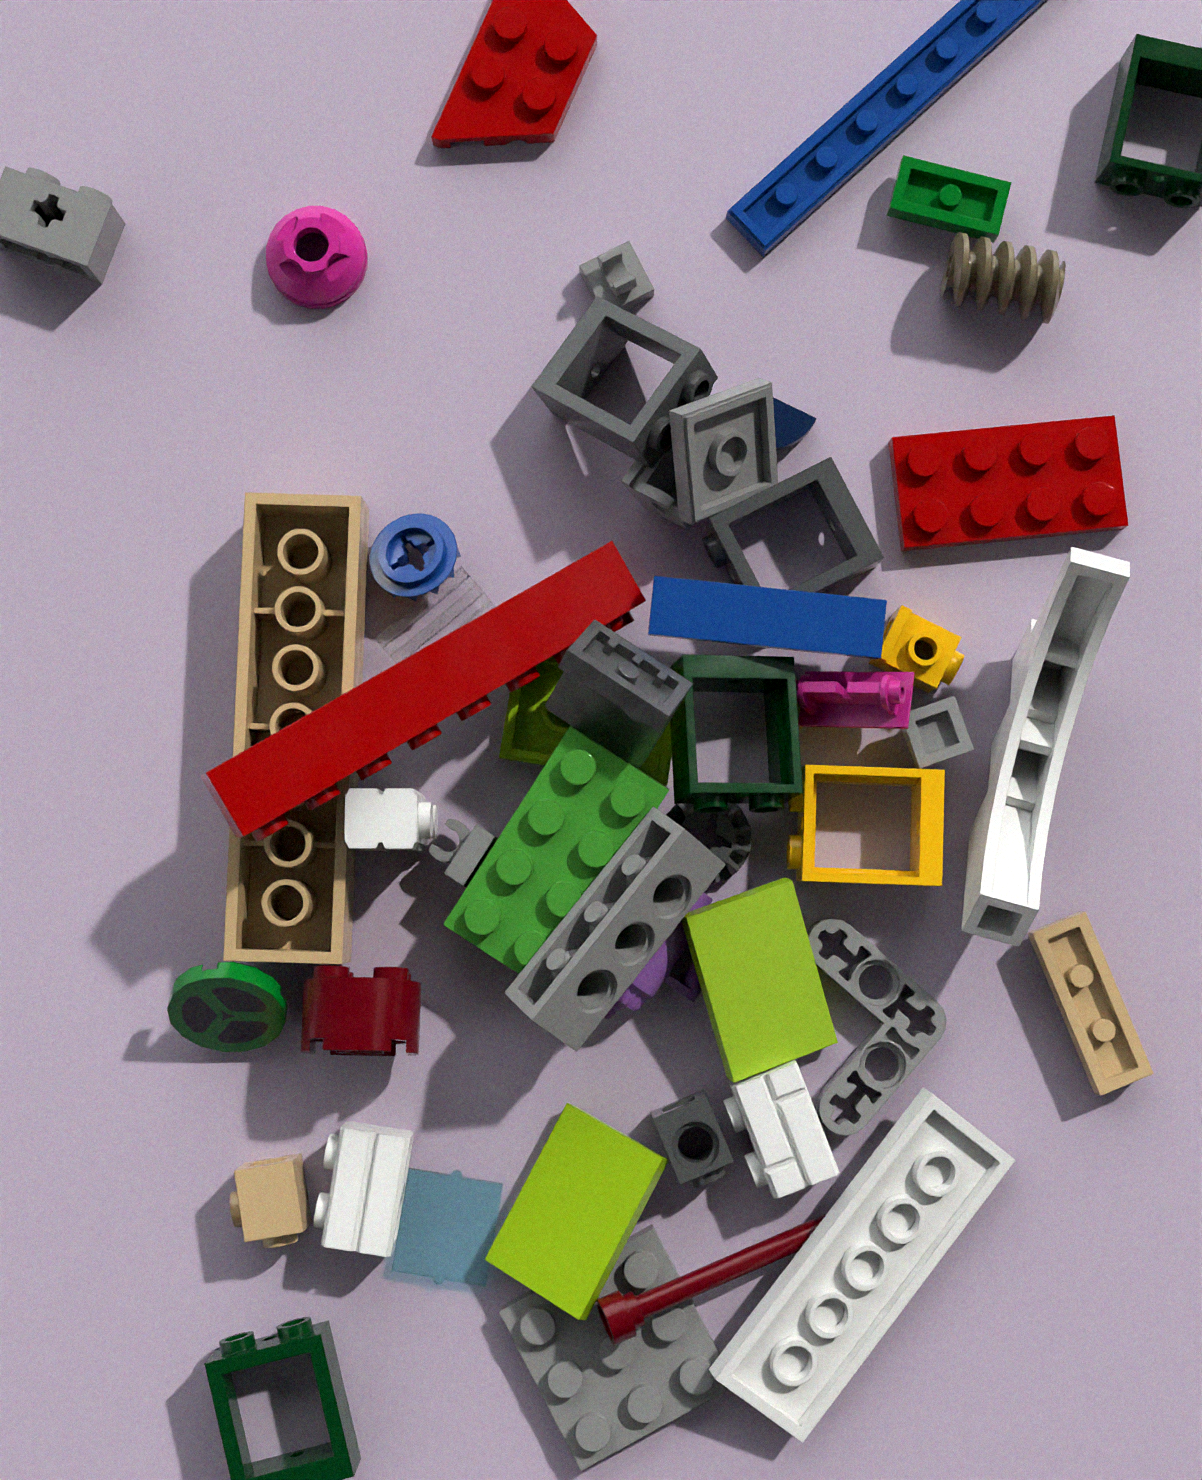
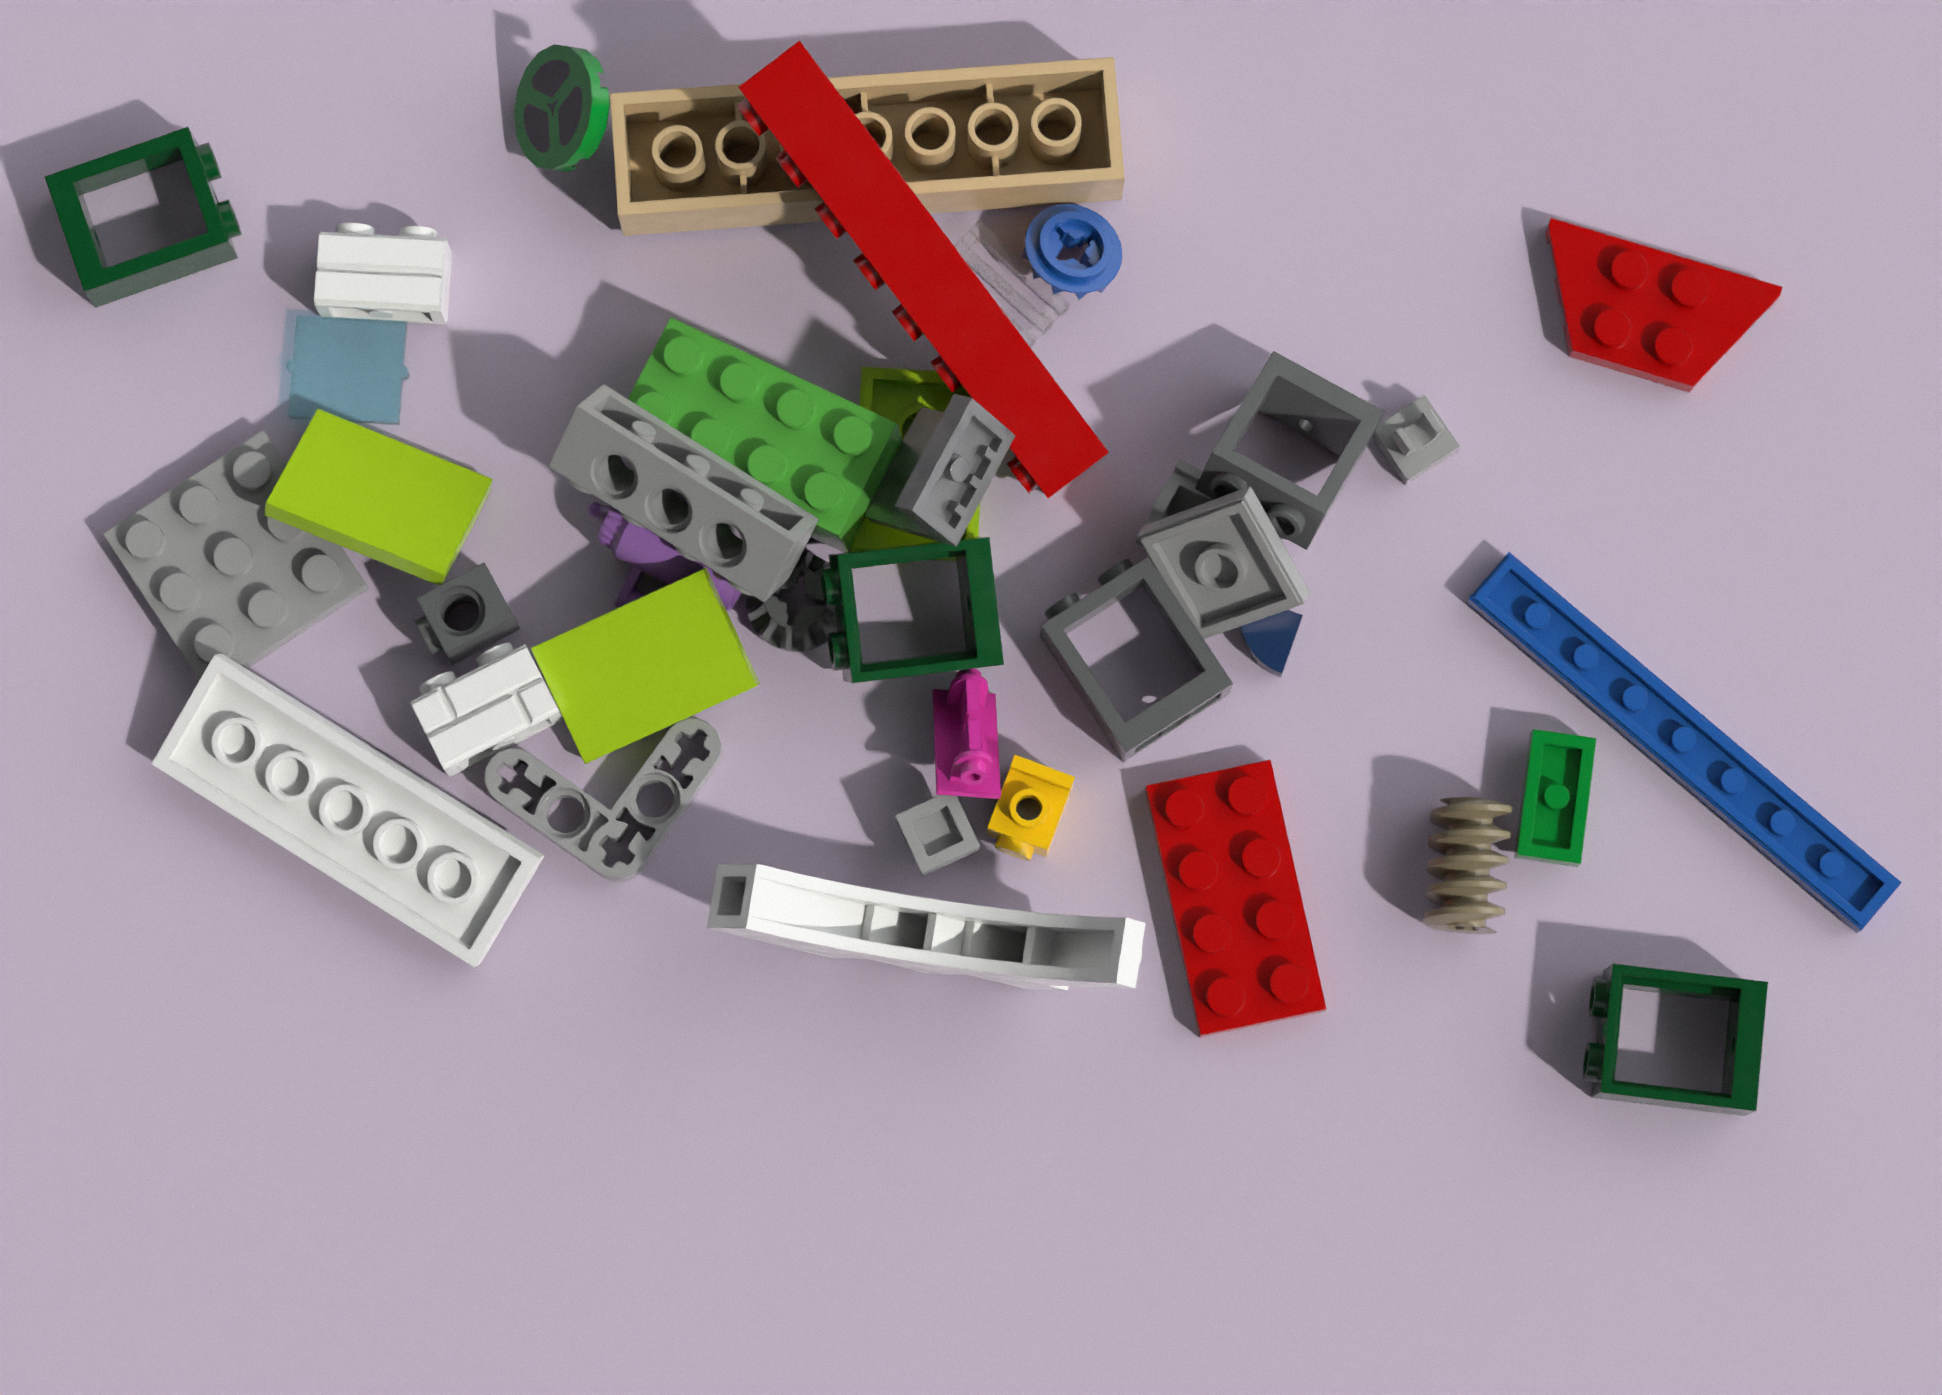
camera: 85 degrees right, 5 degrees down
(271, 1200) = (361, 179): tan brick -> none
(319, 282) = (1394, 139): dark pink piece -> none
(361, 1012) = (567, 246): dark red brick -> none
(388, 819) = (777, 250): white brick -> none
(468, 855) = (745, 336): light grey tile -> none
(627, 1312) = (276, 557): dark red piece -> none
(767, 617) = (1041, 626): blue tile -> none
(925, 826) = (826, 835): yellow window -> none
(1090, 1003) = (655, 1037): tan plate -> none

